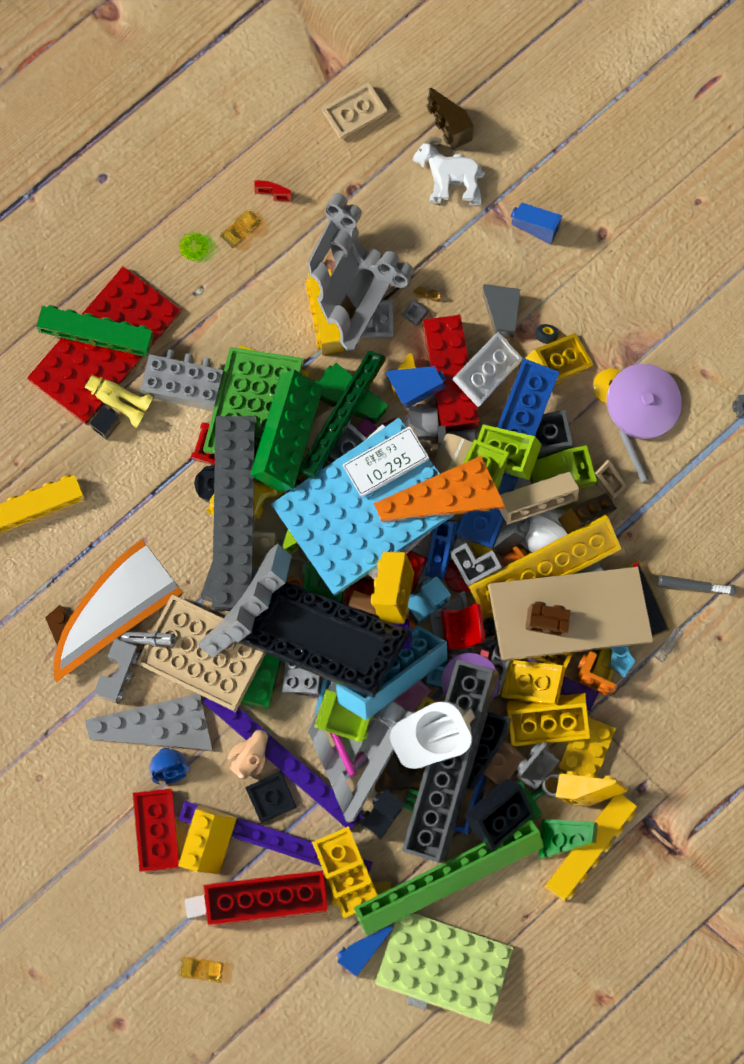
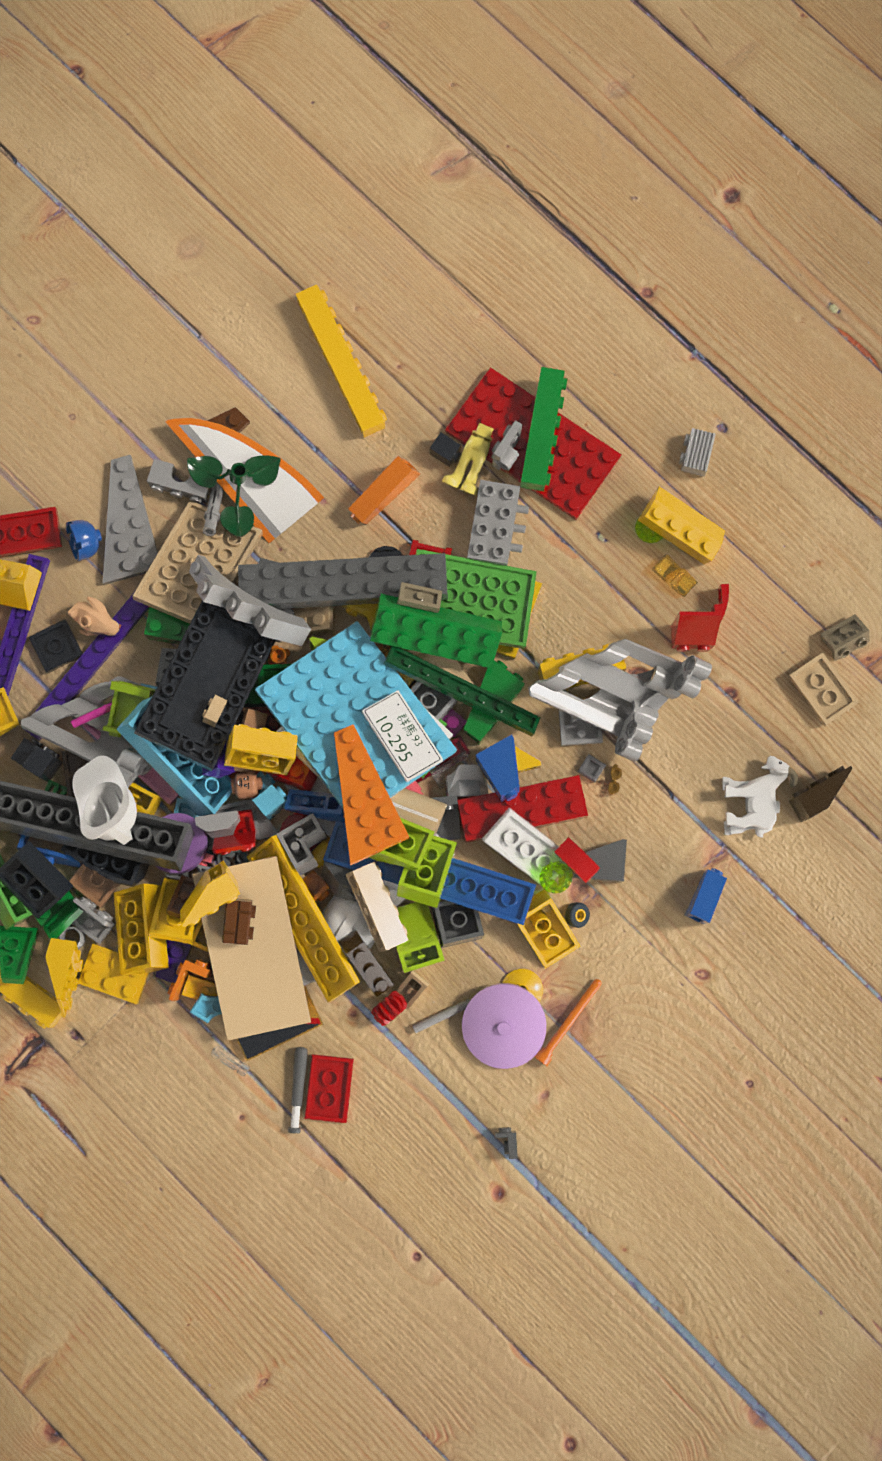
camera: 90 degrees right, 5 degrees up
(113, 593) = (262, 469): none -> dark green plant
(117, 364) = (503, 451): none -> light grey plate
(126, 199) = (697, 452): none -> light grey brick
(142, 480) = (384, 490): none -> orange slope
(197, 216) = (682, 526): none -> yellow slope
(258, 438) = (419, 597): none -> dark tan plate
(297, 211) = (695, 631): none -> red slope
(307, 87) = (846, 637): none -> dark tan bracket
(355, 627) = (214, 711): none -> tan piece
(419, 613) = (246, 784): none -> nougat head
(456, 637) = (218, 824): none -> light grey slope
(500, 325) = (577, 860): none -> red slope
(517, 341) = (551, 885): none -> clear neon green gear
(522, 673) = (180, 896): none -> reddish brown plate
(525, 639) = (212, 890): none -> yellow slope
(536, 791) = (62, 919): none -> green tile
(626, 498) = (389, 1008): none -> red gear
(671, 369) = (544, 1055): none -> orange piece
(695, 558) = (329, 1088): none -> red tile

